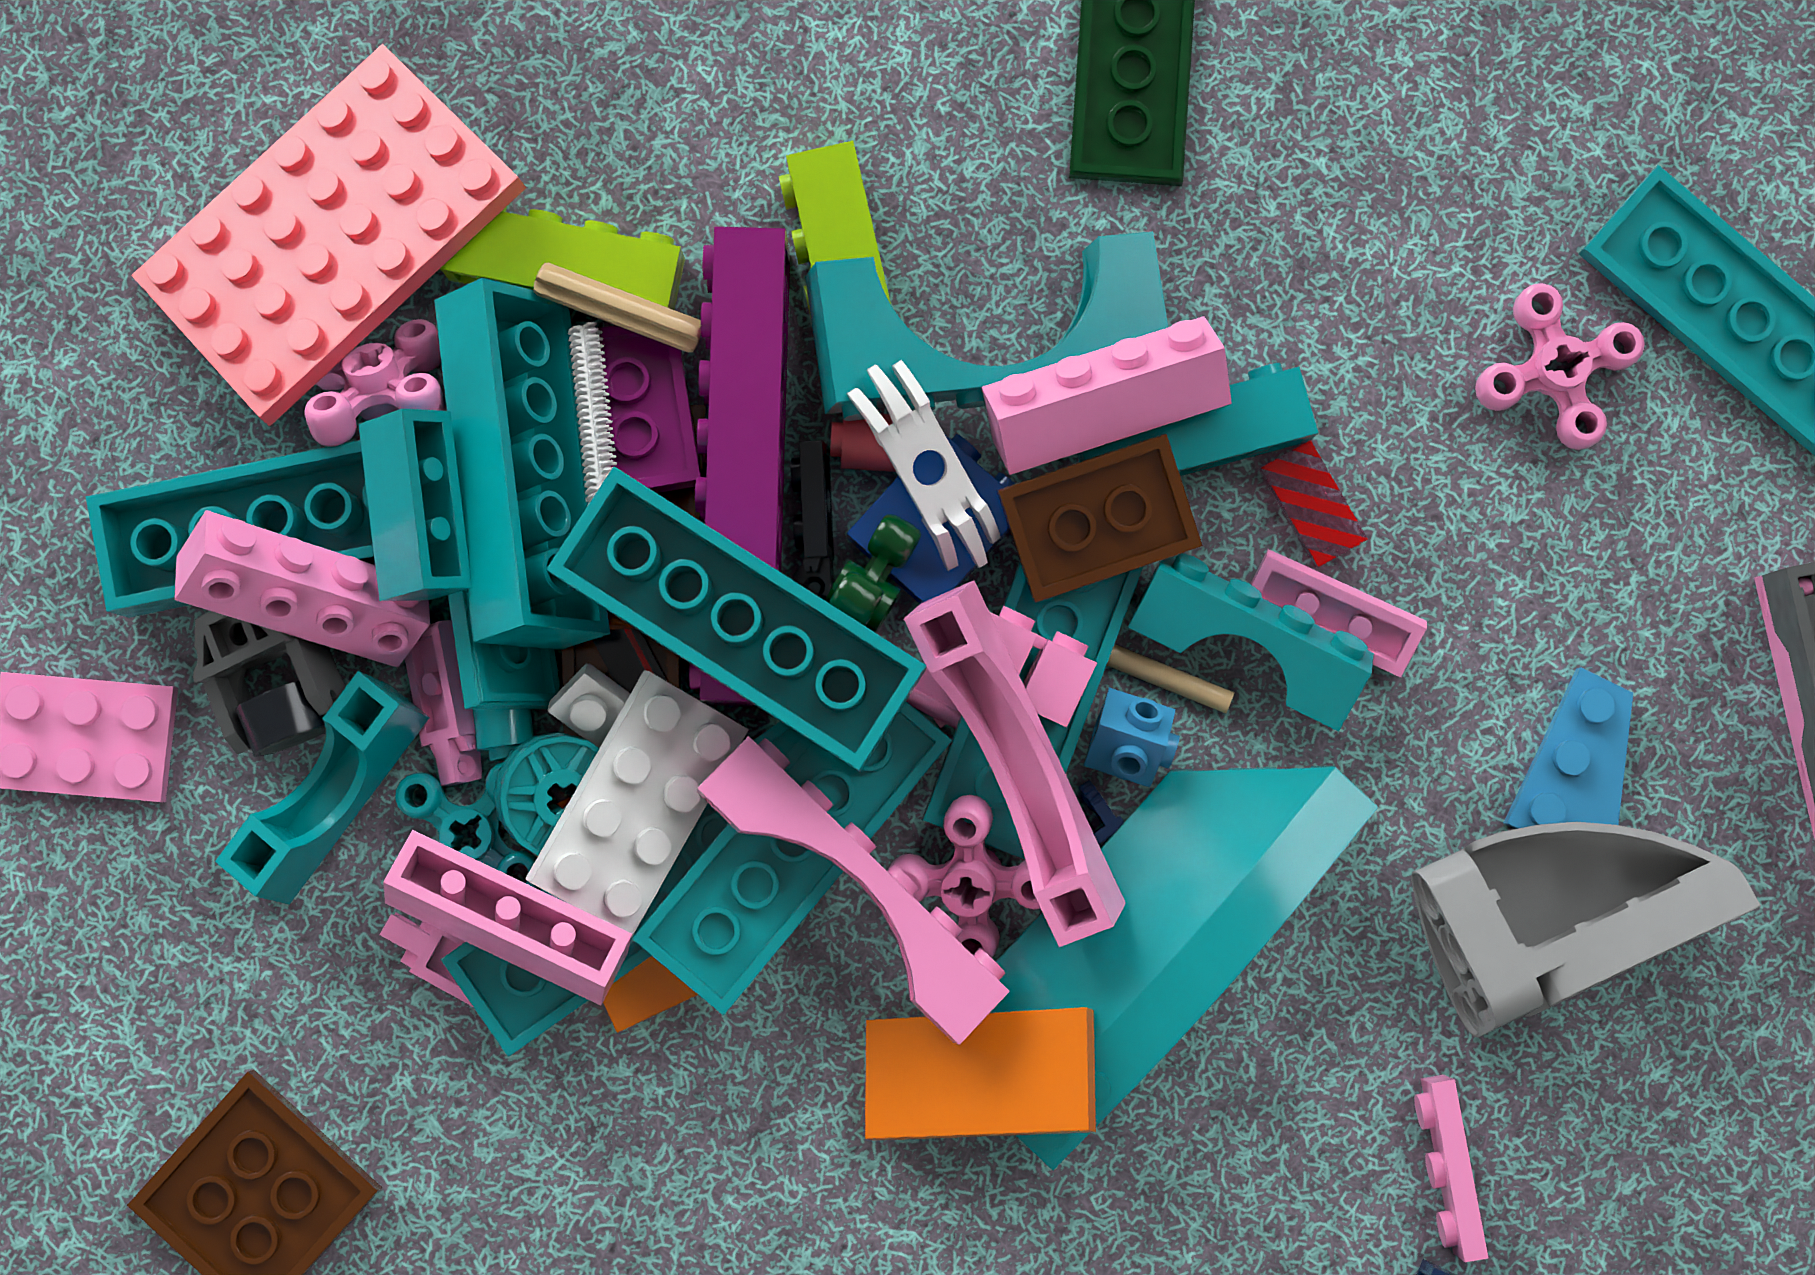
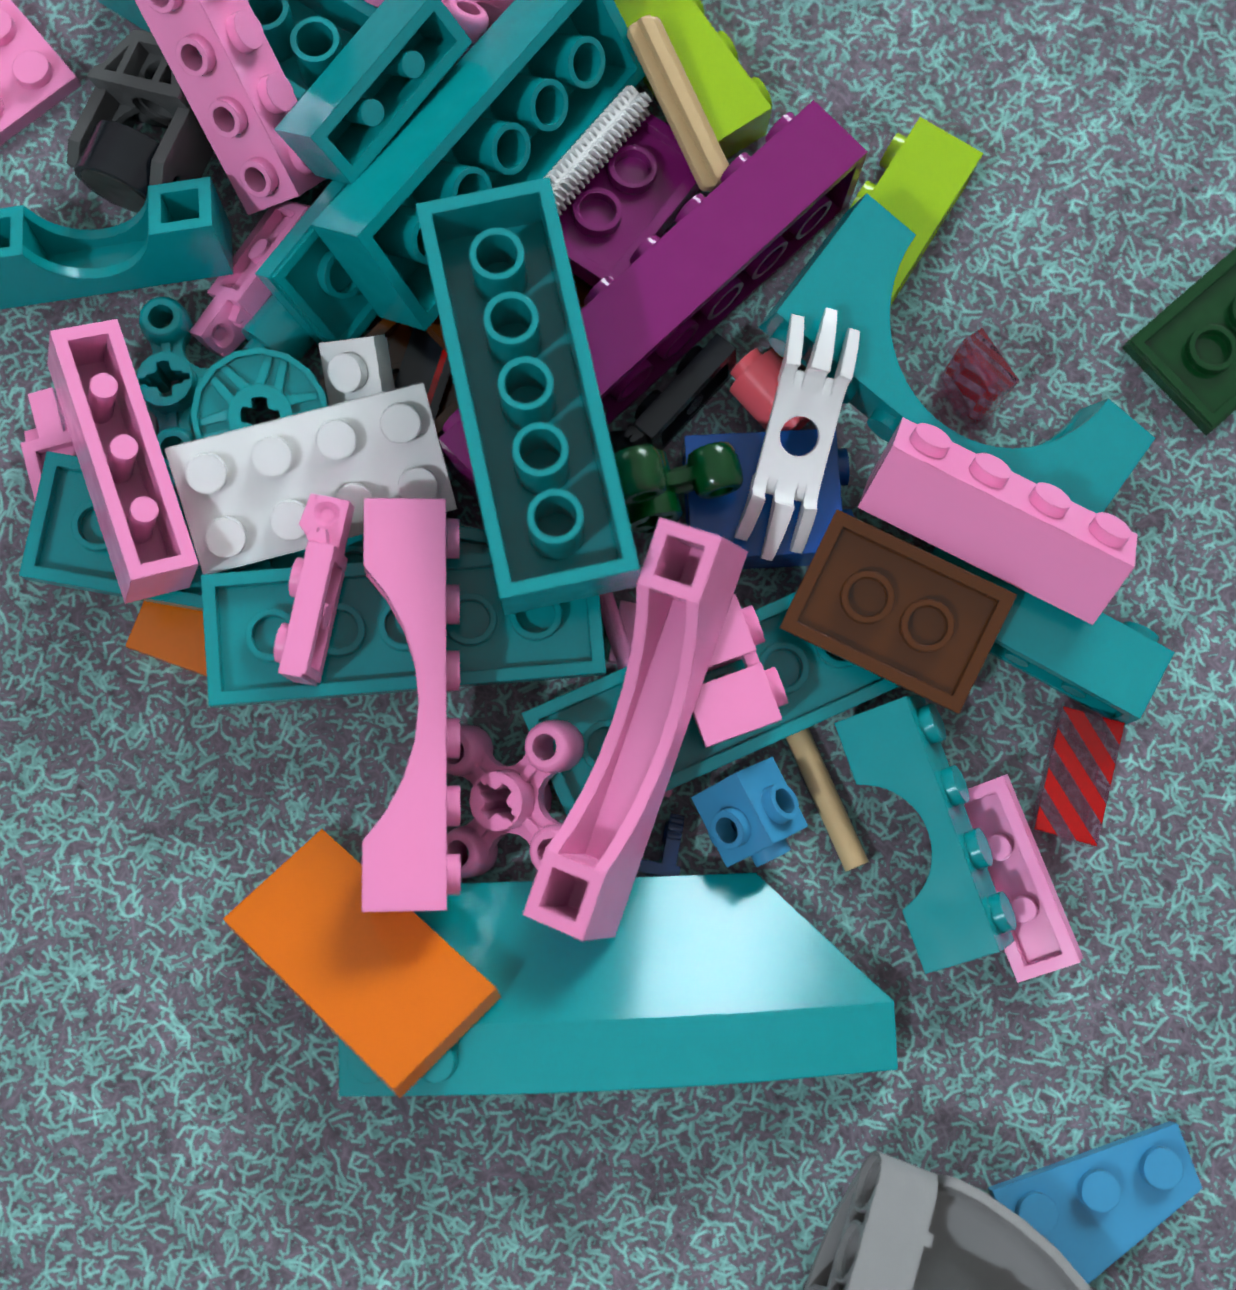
camera: 40 degrees right, 5 degrees down
(718, 872) = (316, 586): none -> bright pink hinge
(1000, 307) = (977, 379): none -> clear pink tile

